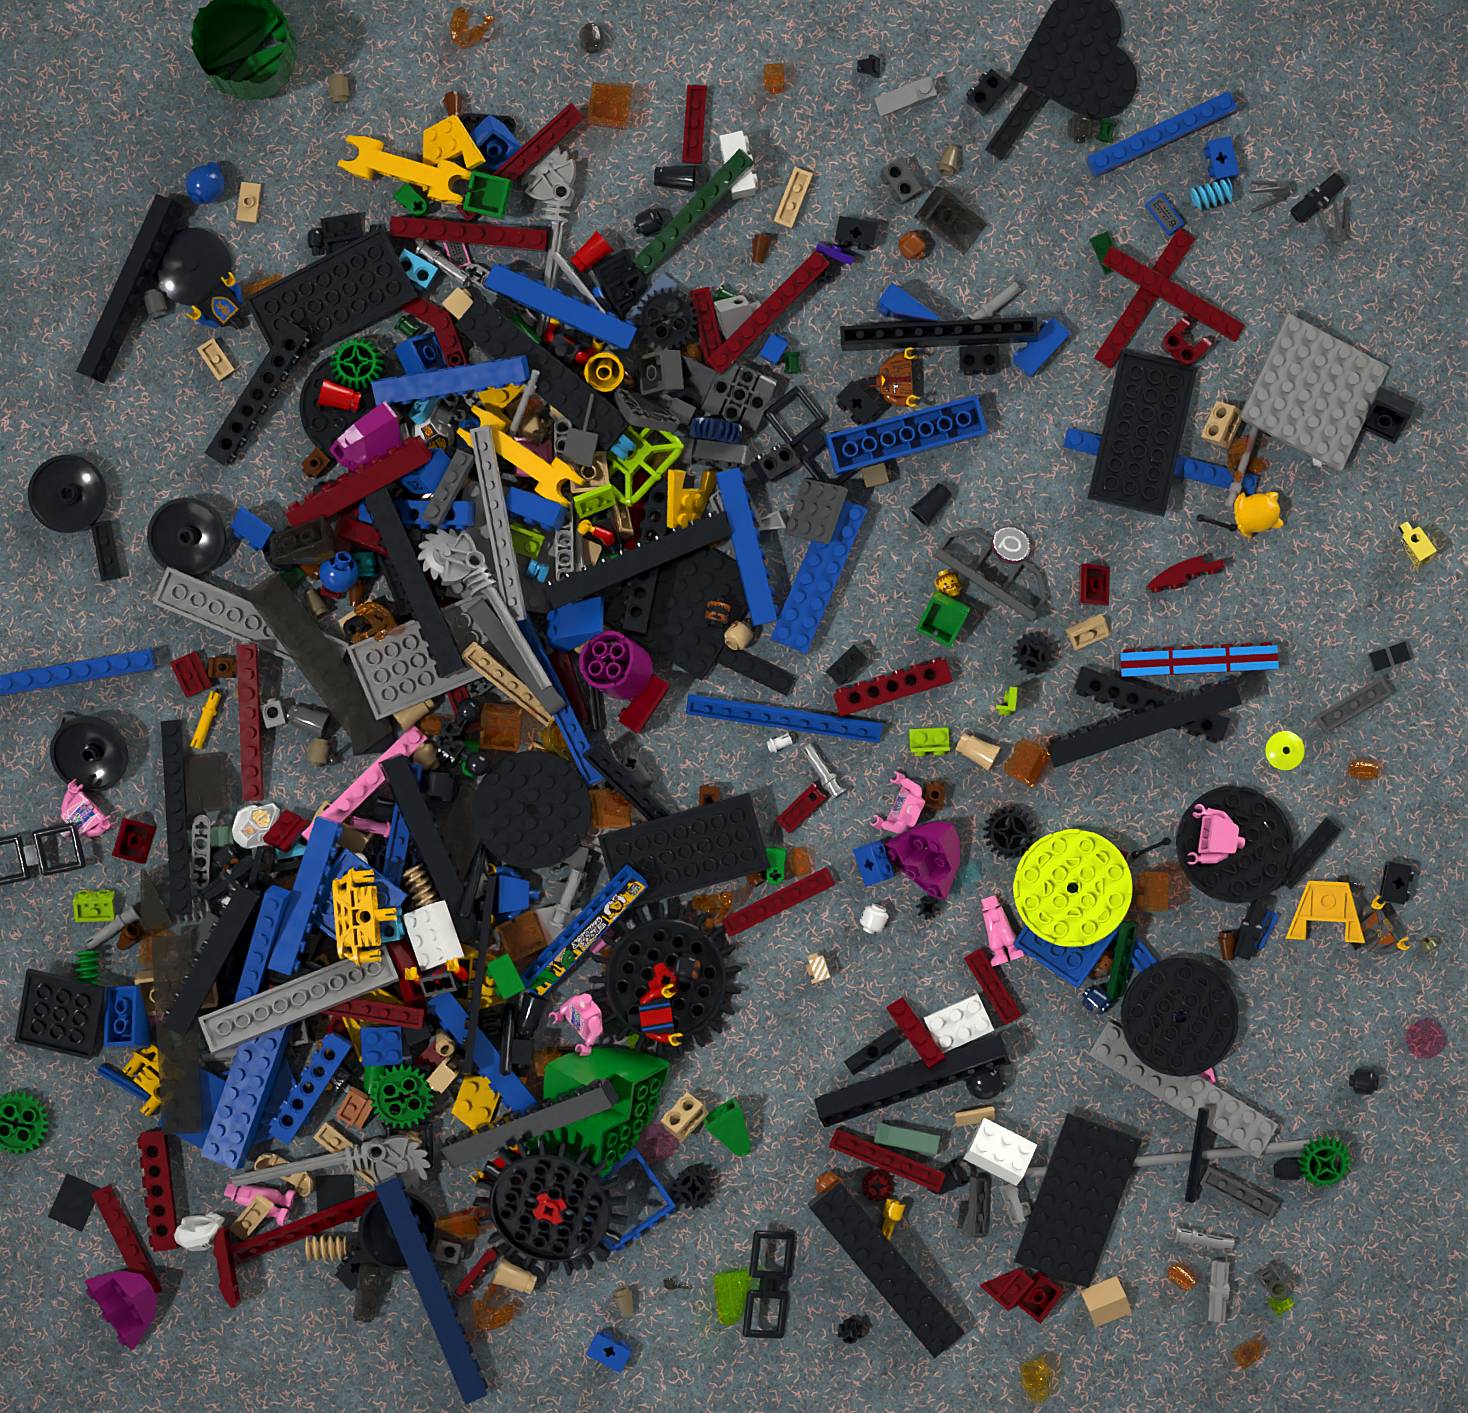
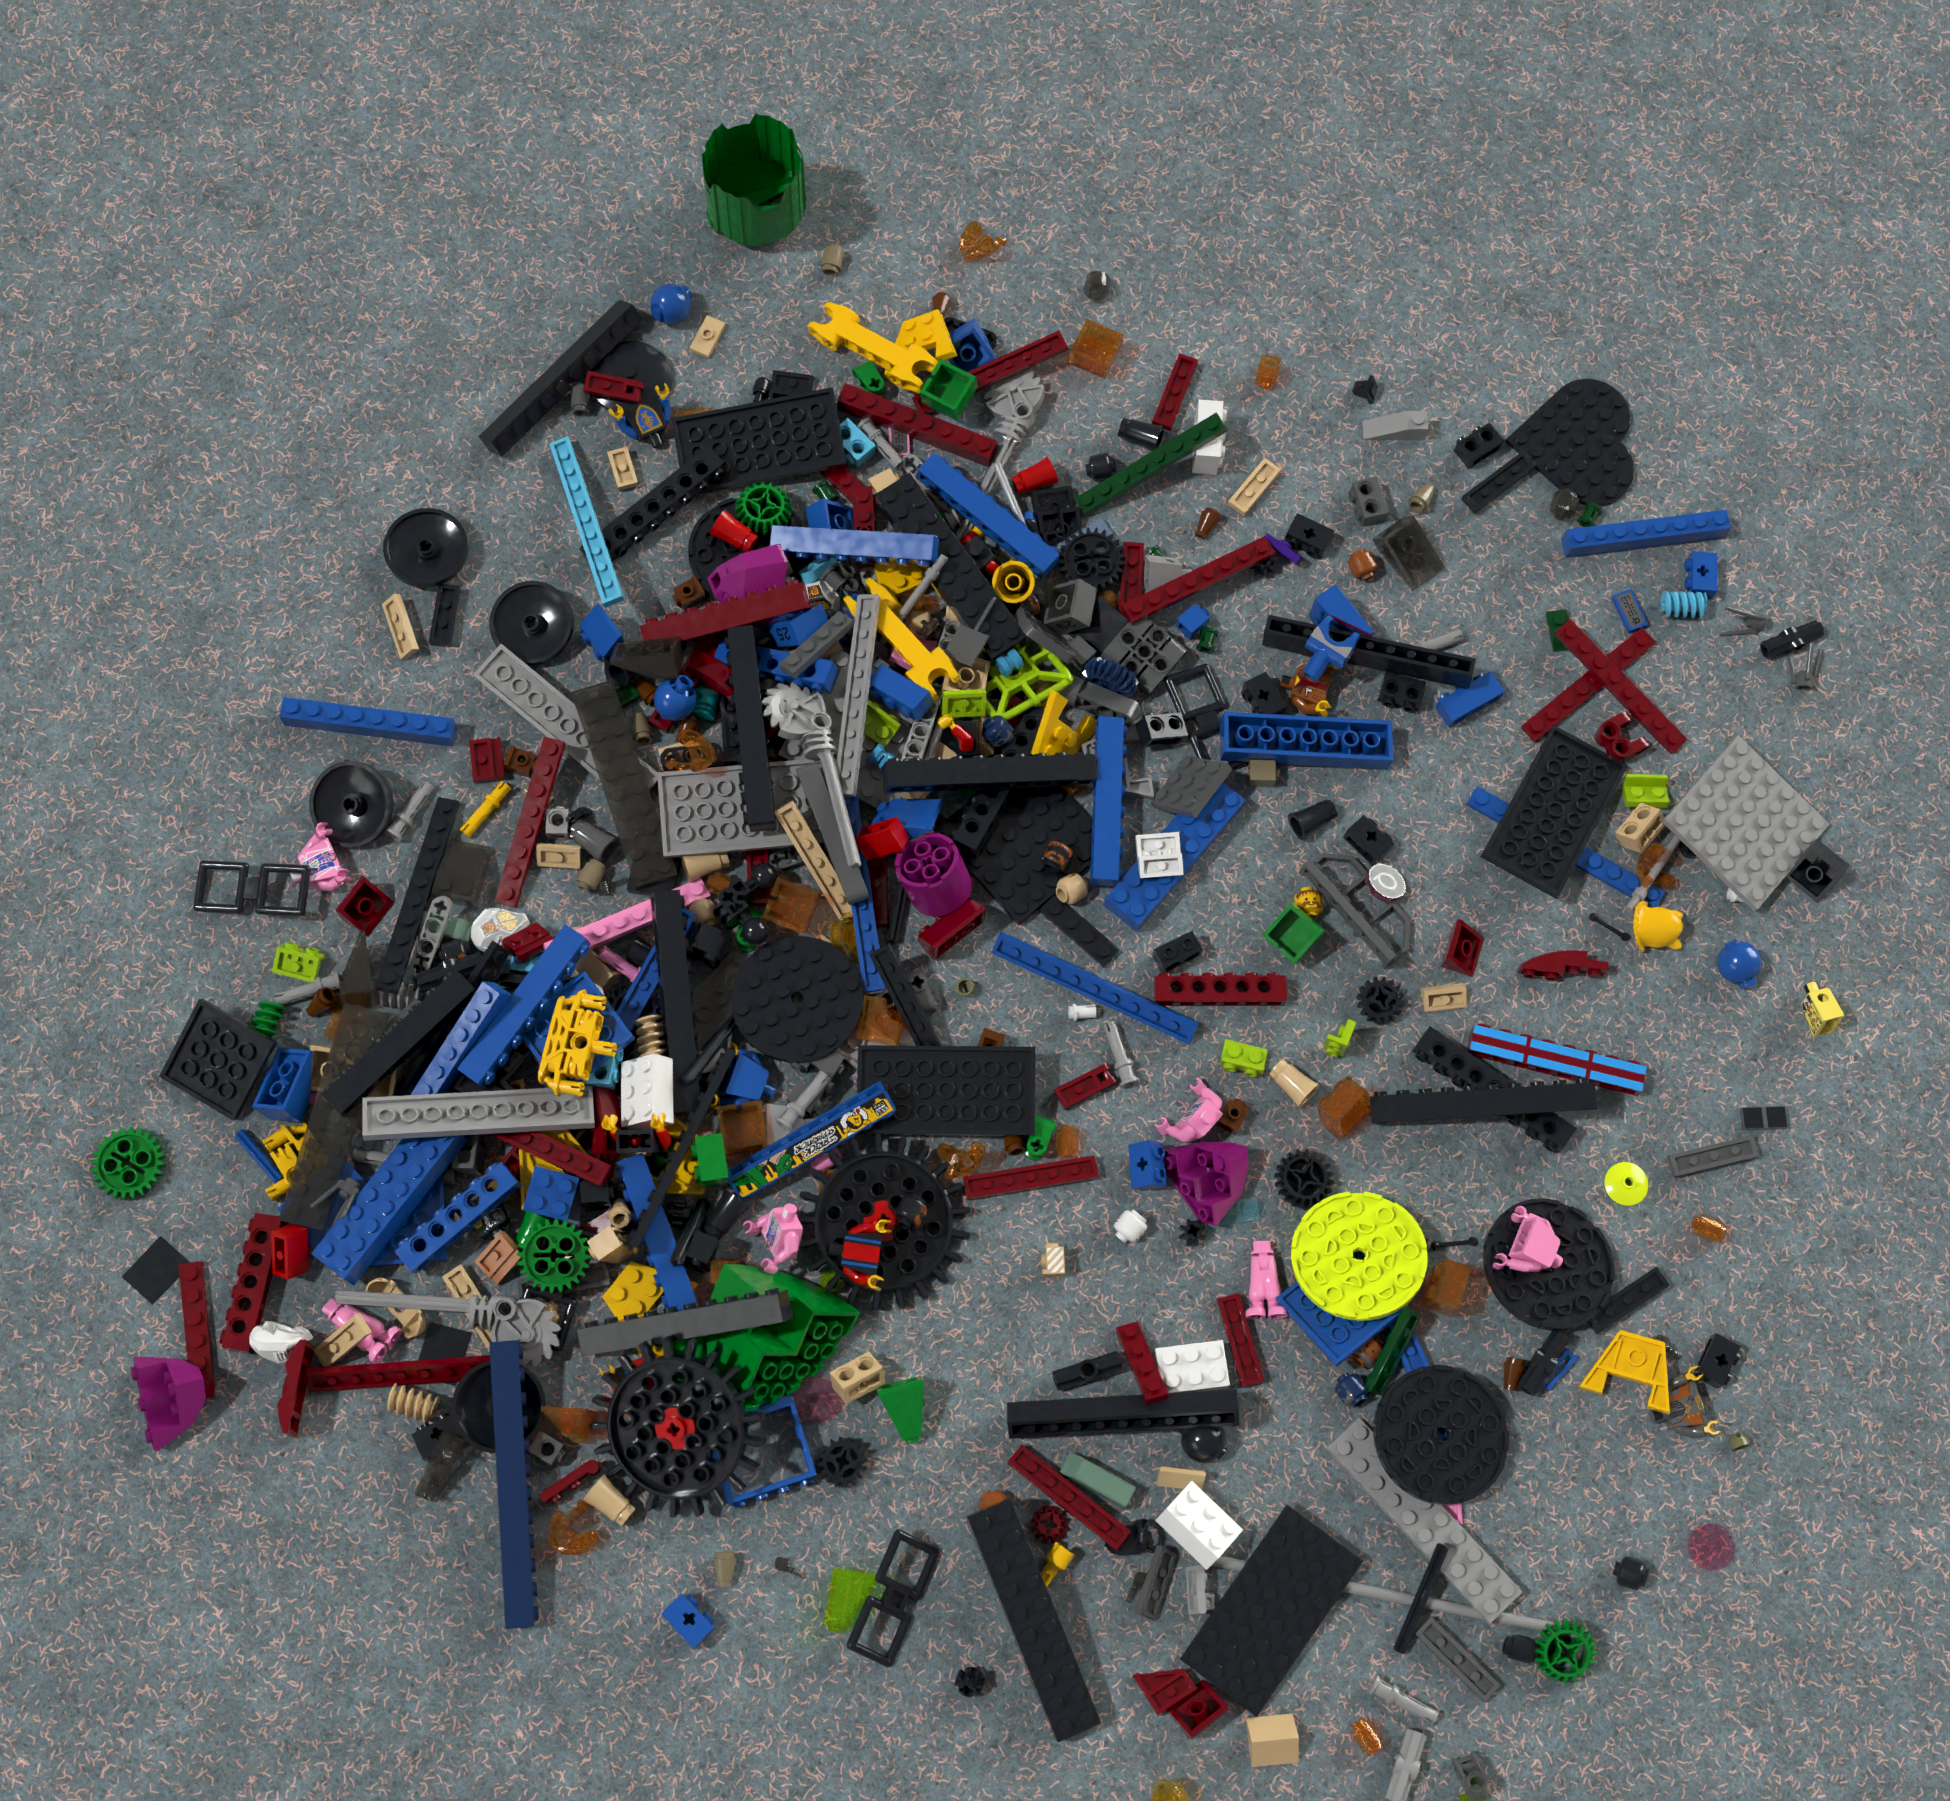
camera: 10 degrees right, 15 degrees down
(71, 574) = (400, 626): none -> tan plate
(139, 751) = (404, 818): none -> light grey pin
(181, 286) = (613, 387): none -> dark red plate
(181, 1157) = (290, 1251): none -> red brick
(202, 426) = (586, 522): none -> medium azure plate
(213, 1093) = (348, 1191): none -> dark grey plant
(284, 743) = (558, 855): none -> tan plate
(289, 698) = (581, 812): none -> black piece
(561, 649) = (882, 838): none -> red brick
(631, 515) = (997, 731): none -> dark blue head
(670, 755) = (961, 990): none -> olive hinge
(806, 586) = (1159, 855): none -> white slope
(901, 349) = (1327, 650): none -> blue connector
(991, 519) = (1371, 850): none -> black brick
(1218, 387) = (1646, 790): none -> lime bracket
(1337, 524) = (1739, 963): none -> blue brick

